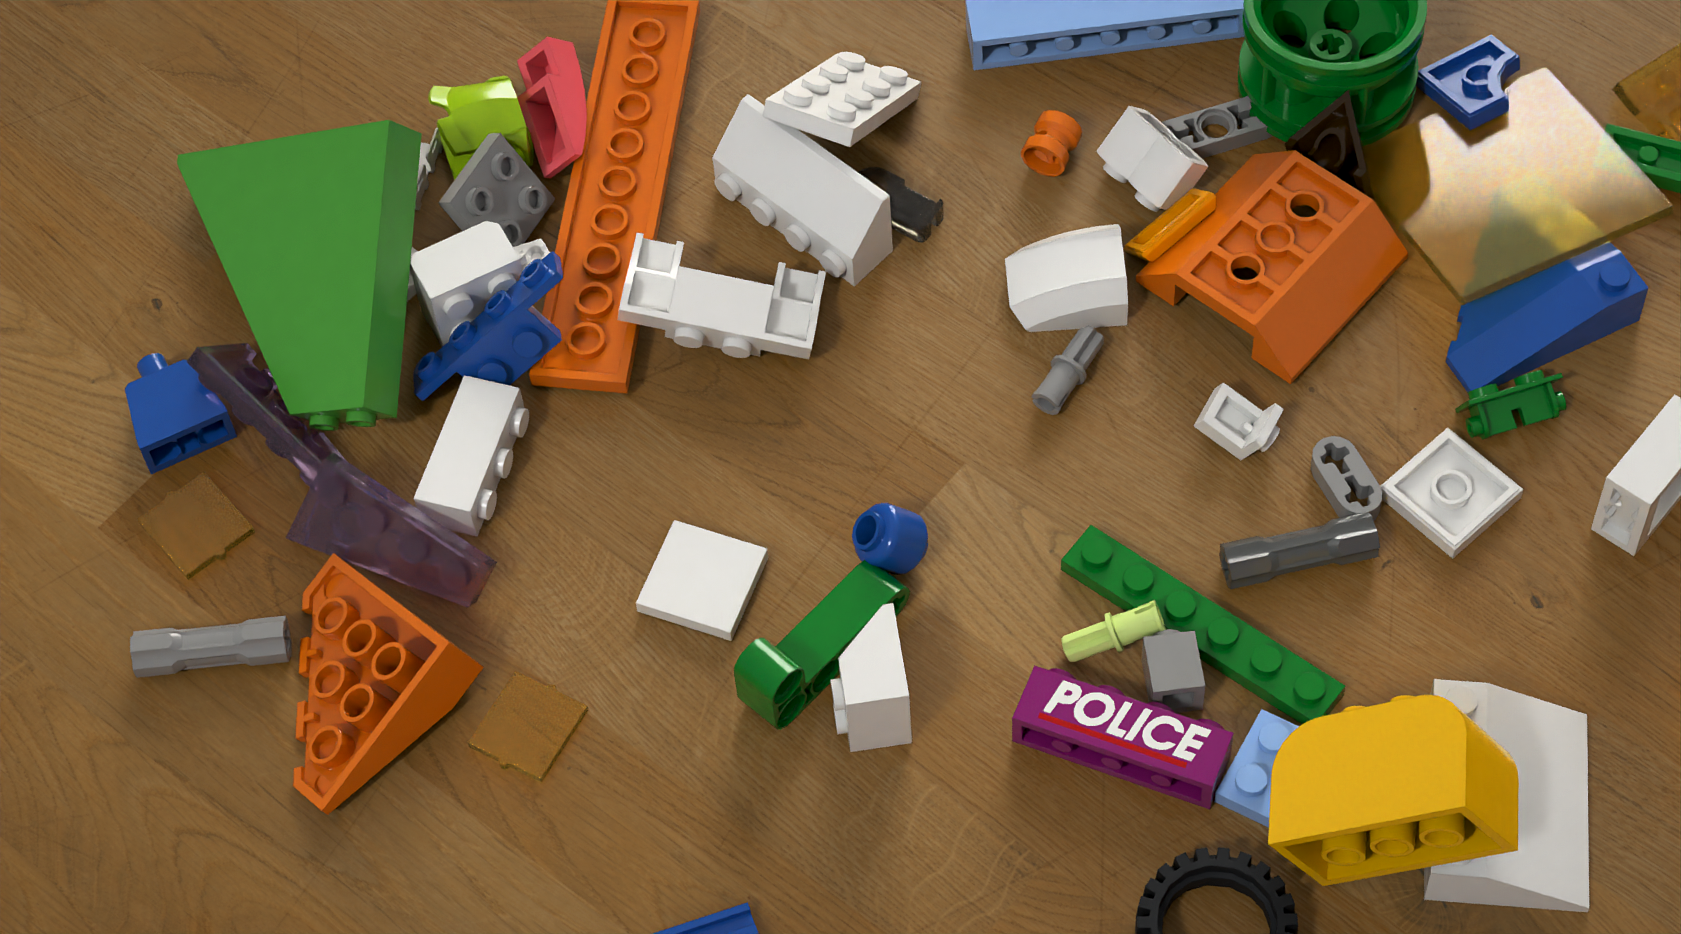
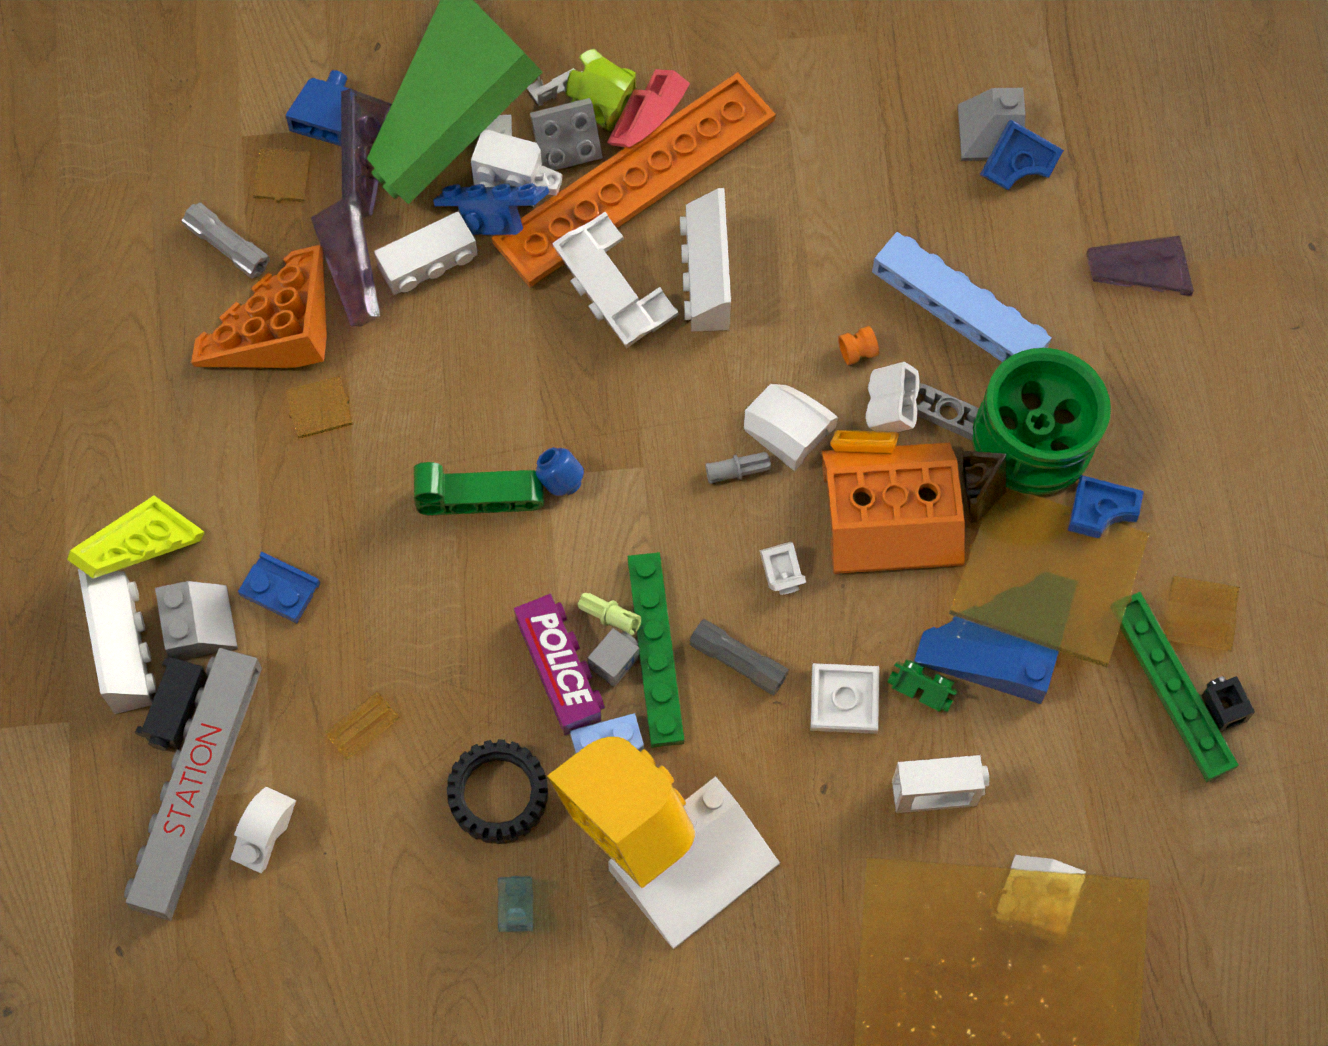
camera: 40 degrees right, 10 degrees up
(702, 580) = (463, 410): white tile -> none
(842, 98) = (774, 231): white plate -> none
(872, 687) = (473, 533): white slope -> none
(910, 211) = (754, 310): clear smoke piece -> none
(1354, 475) = (794, 643): light grey beam -> none

